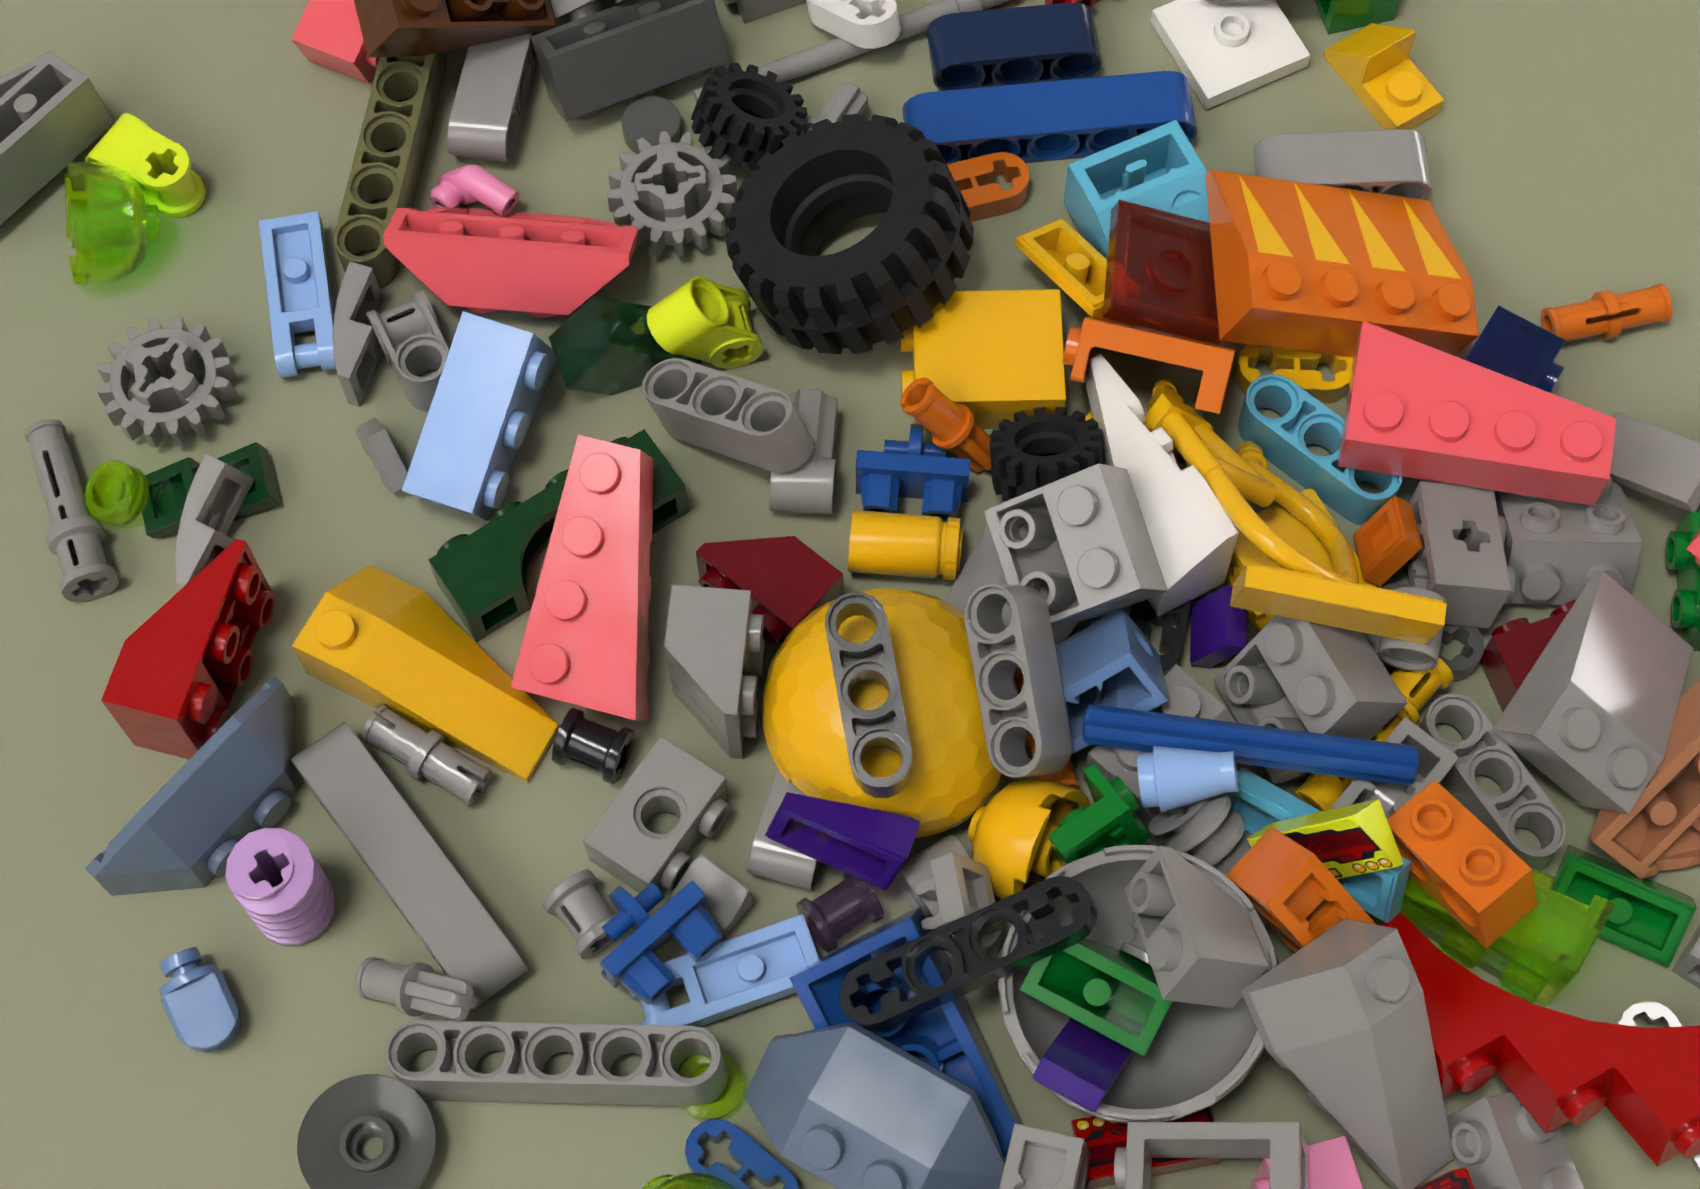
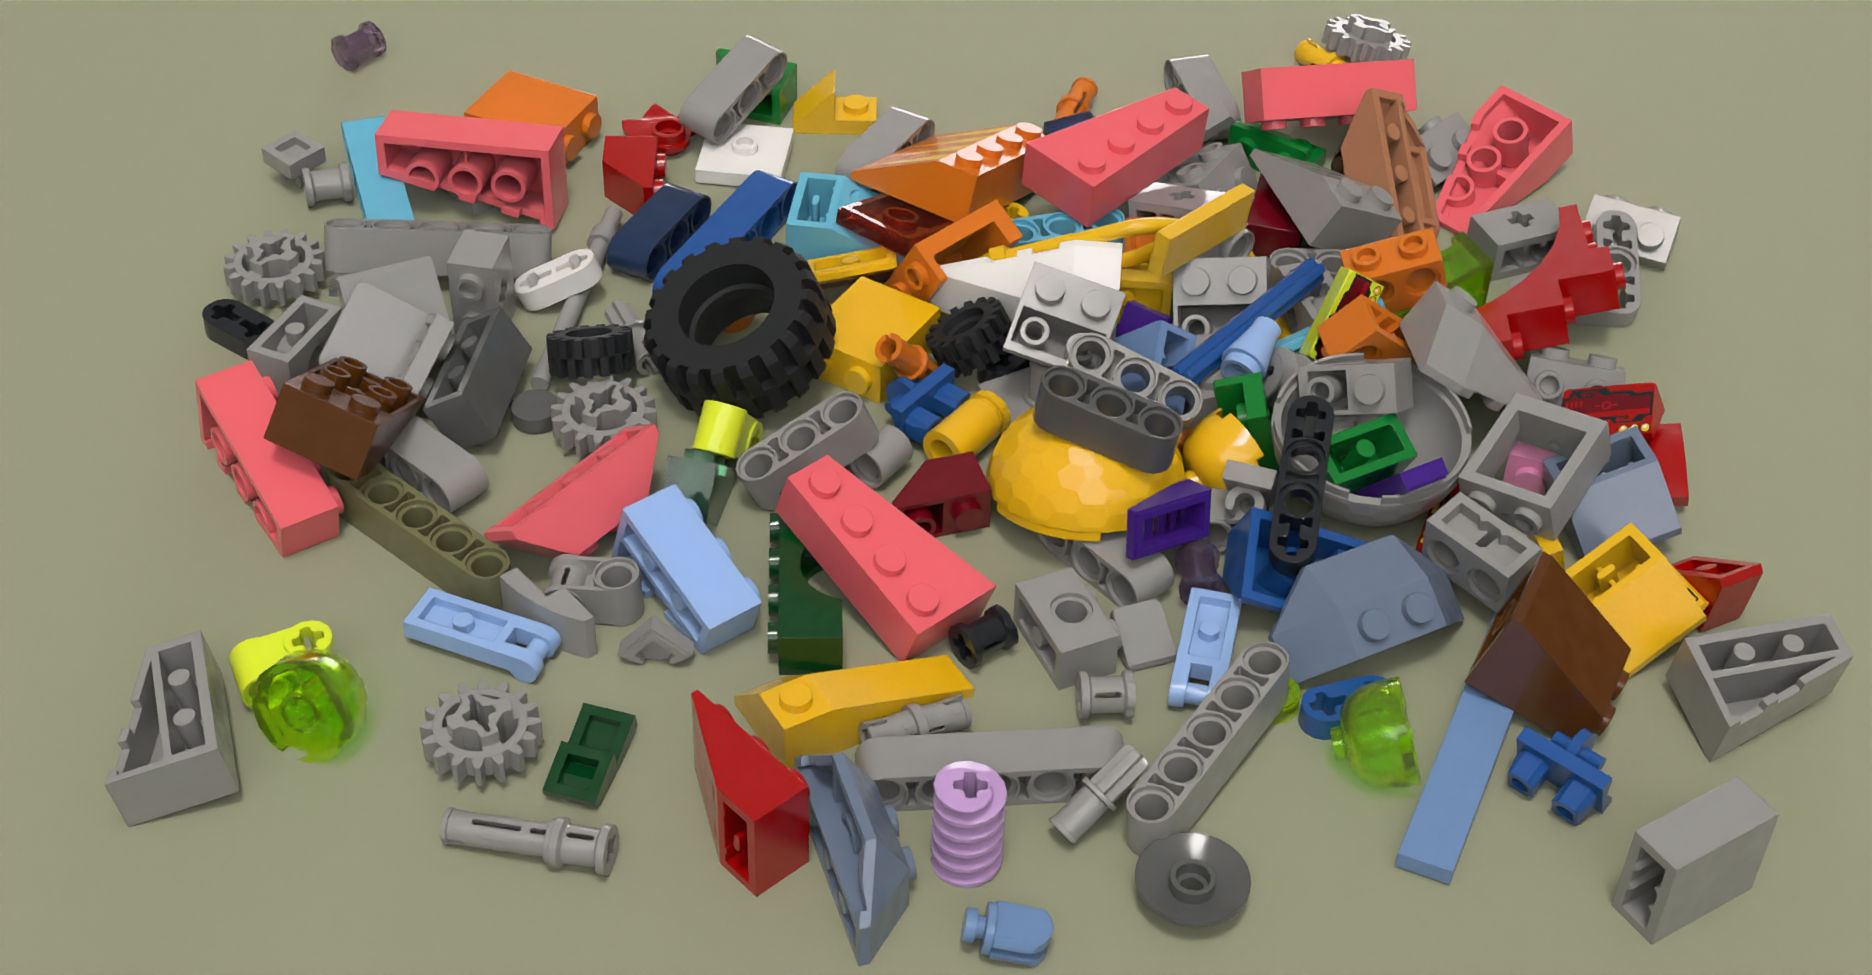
camera: 60 degrees left, 25 degrees down
(116, 493) = (543, 799): clear neon green tile -> none
(207, 515) = (638, 756): light grey slope -> none
(470, 185) = (493, 503): bright pink arm -> none
(635, 959) = (1154, 652): blue hips -> none
(715, 660) = (992, 528): light grey slope -> none

